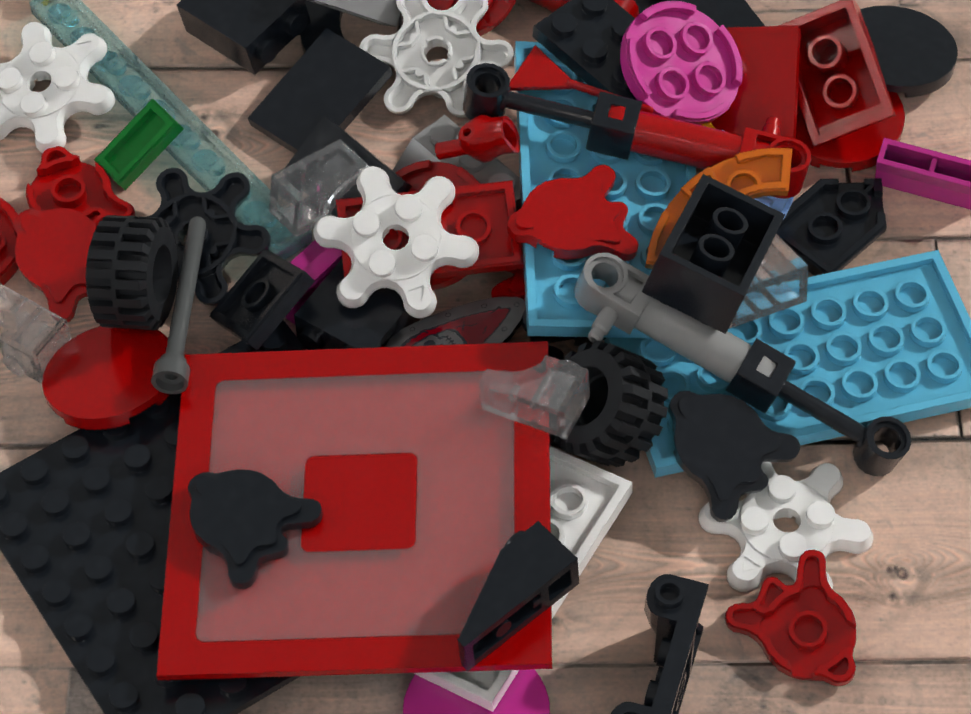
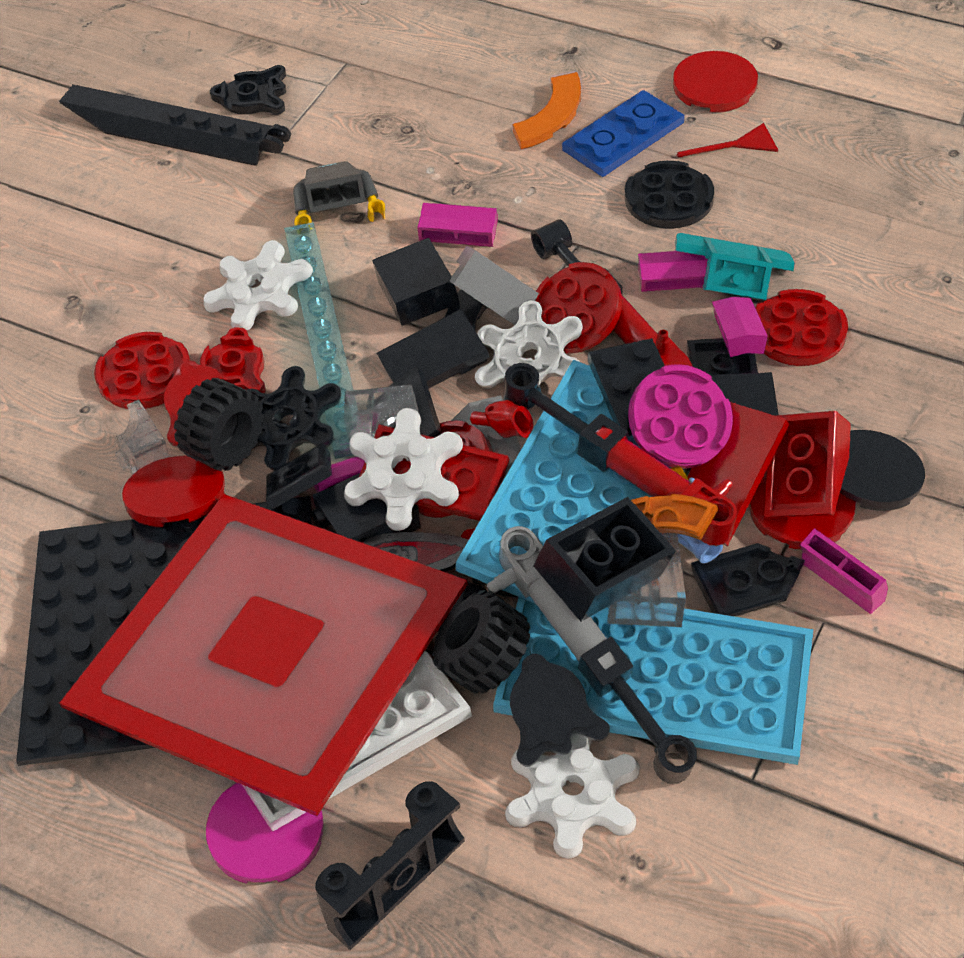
camera: 30 degrees right, 5 degrees down
(139, 144) = (292, 344): green tile -> none
(171, 371) = (203, 500): dark grey piece -> none
(244, 519) = (180, 619): black tile -> none
(523, 583) = (320, 746): black slope -> none
(541, 73) = (578, 389): red piece -> none
(542, 396) = (430, 615): clear arch -> none
(575, 218) = (535, 496): red tile -> none
(802, 625) = (535, 869): red tile -> none

